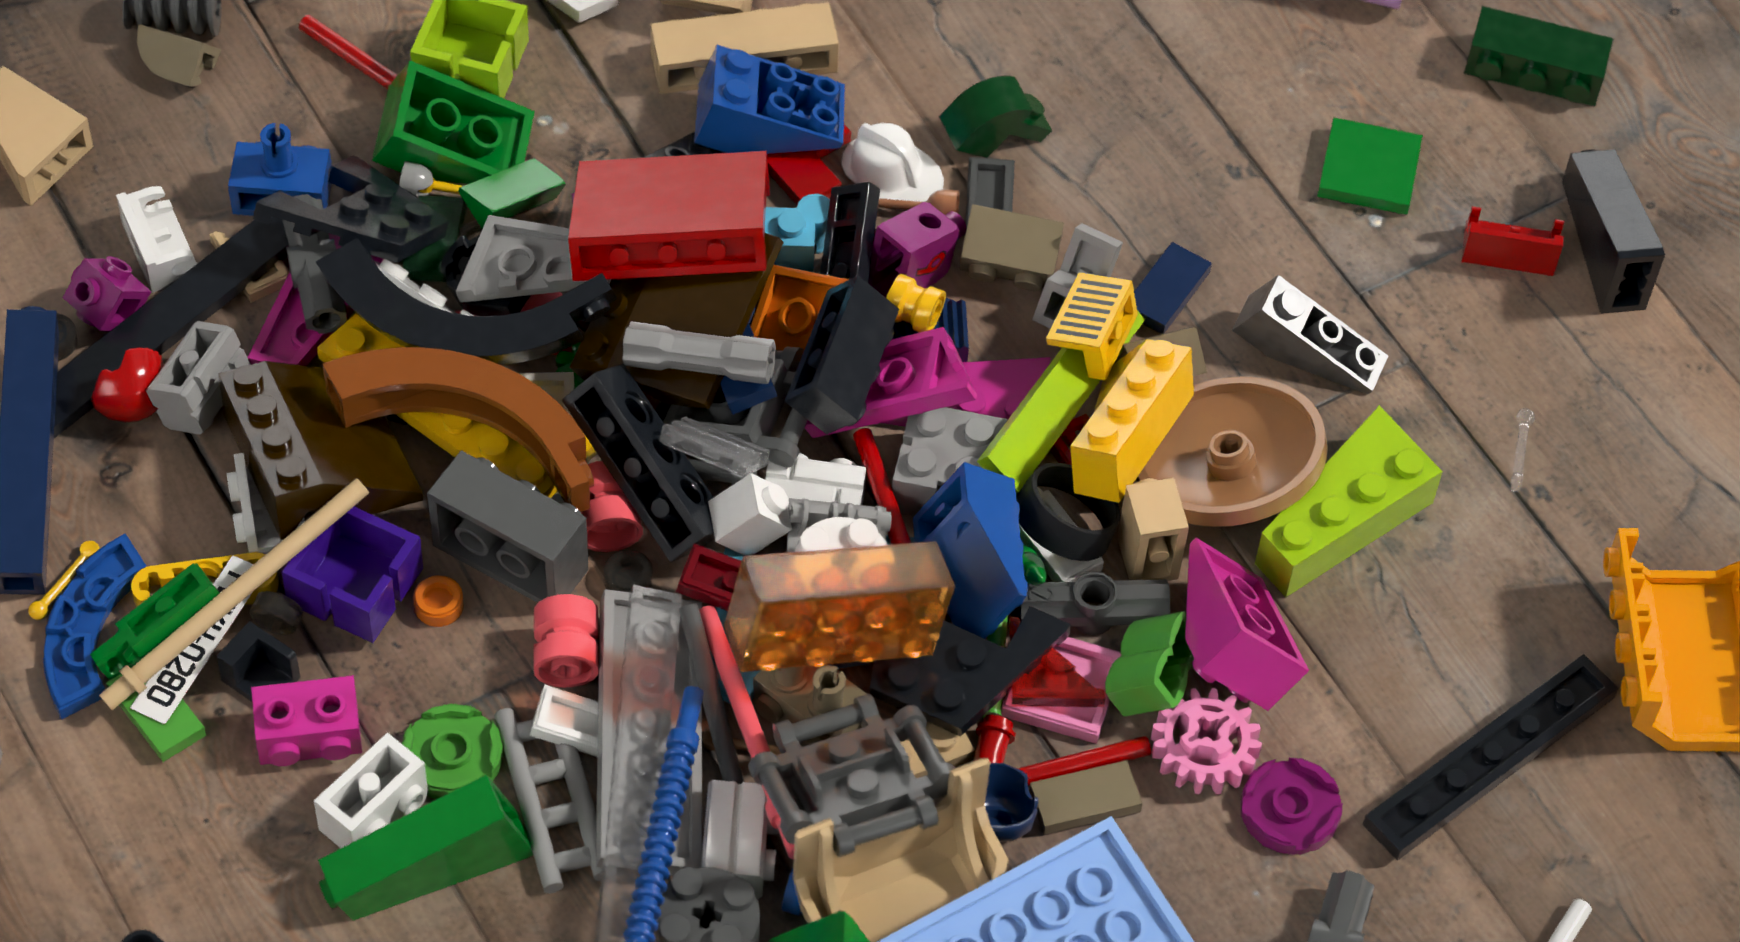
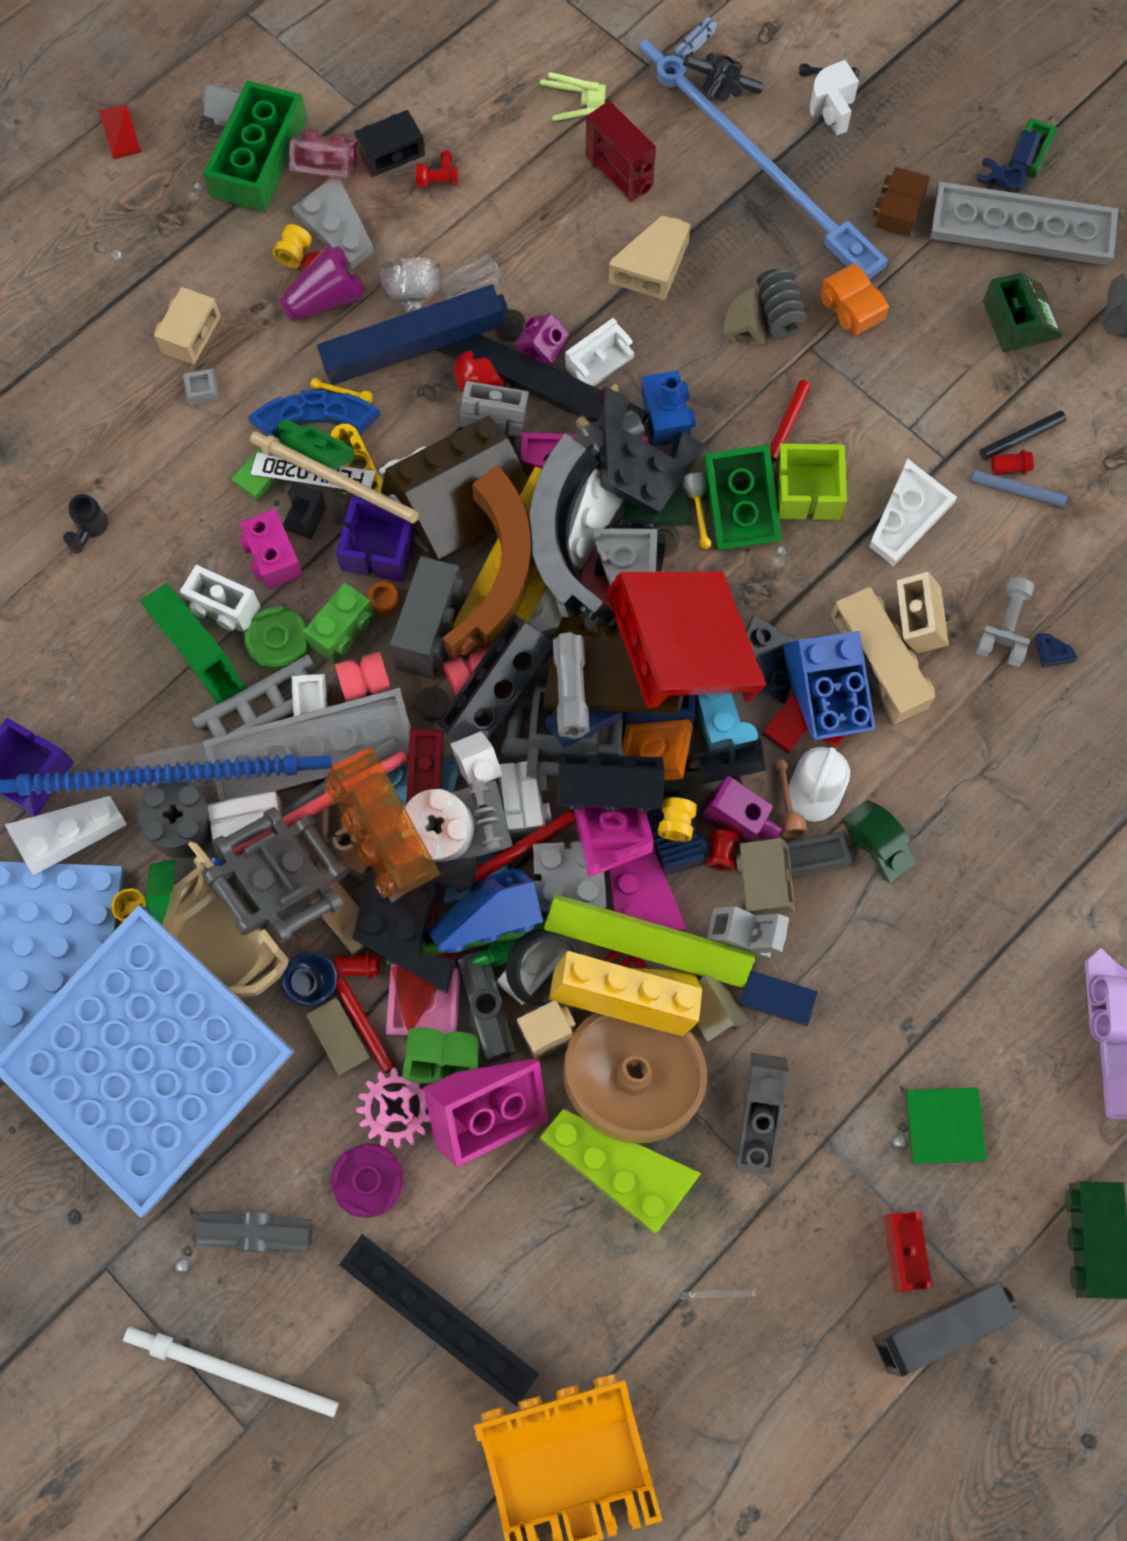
camera: 80 degrees right, 15 degrees up
(467, 652) = (339, 623): none -> bright green brick
(512, 191) = (704, 543): slope -> none
(714, 446) = (517, 722): clear tile -> none
(959, 286) = (723, 850): none -> red bush
(1095, 320) = (706, 948): yellow panel -> none

